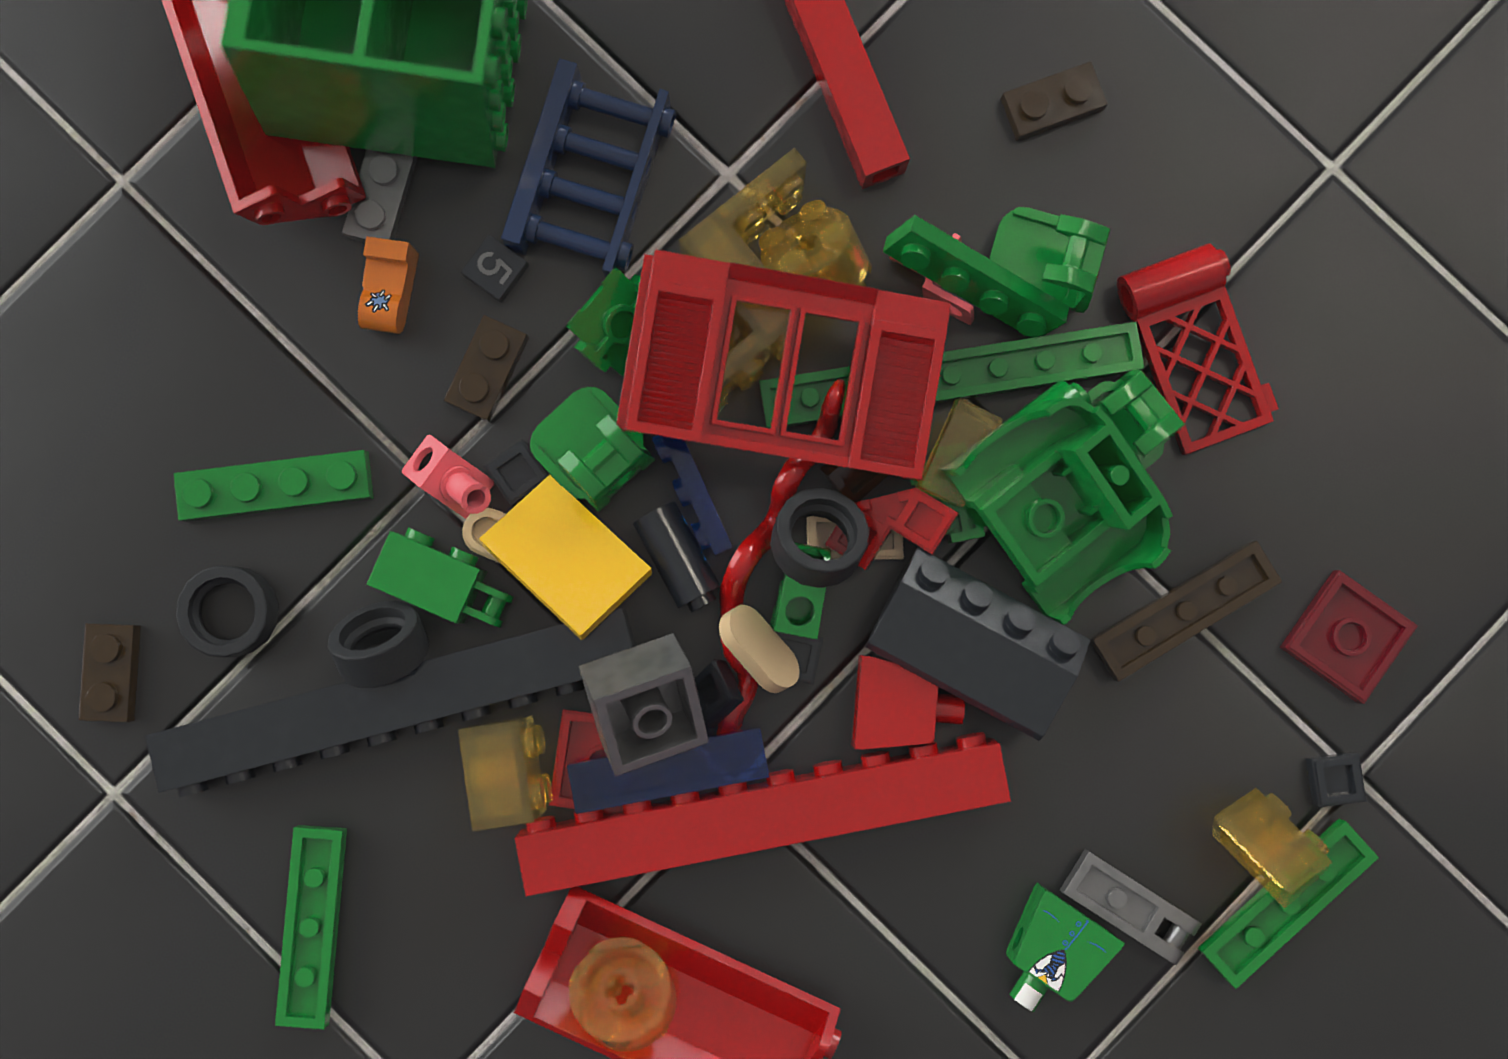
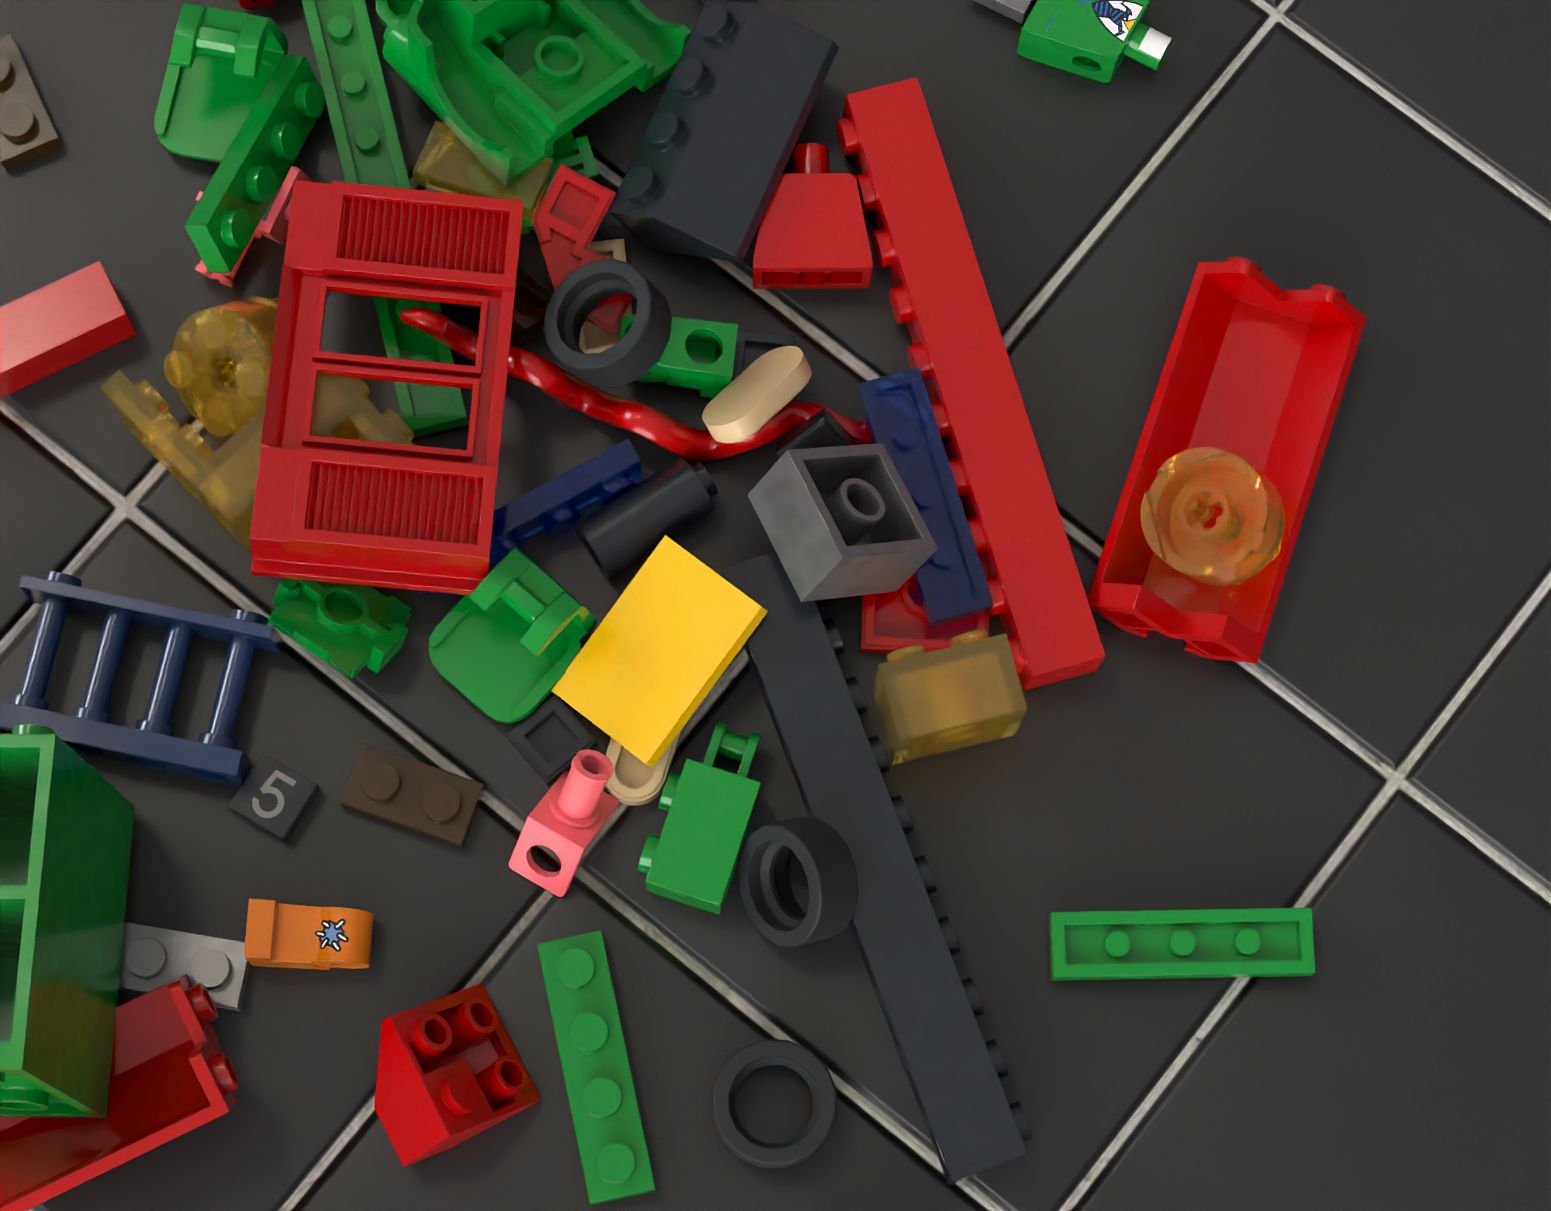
camera: 95 degrees left, 10 degrees down
(272, 380) = (447, 1074): none -> red slope

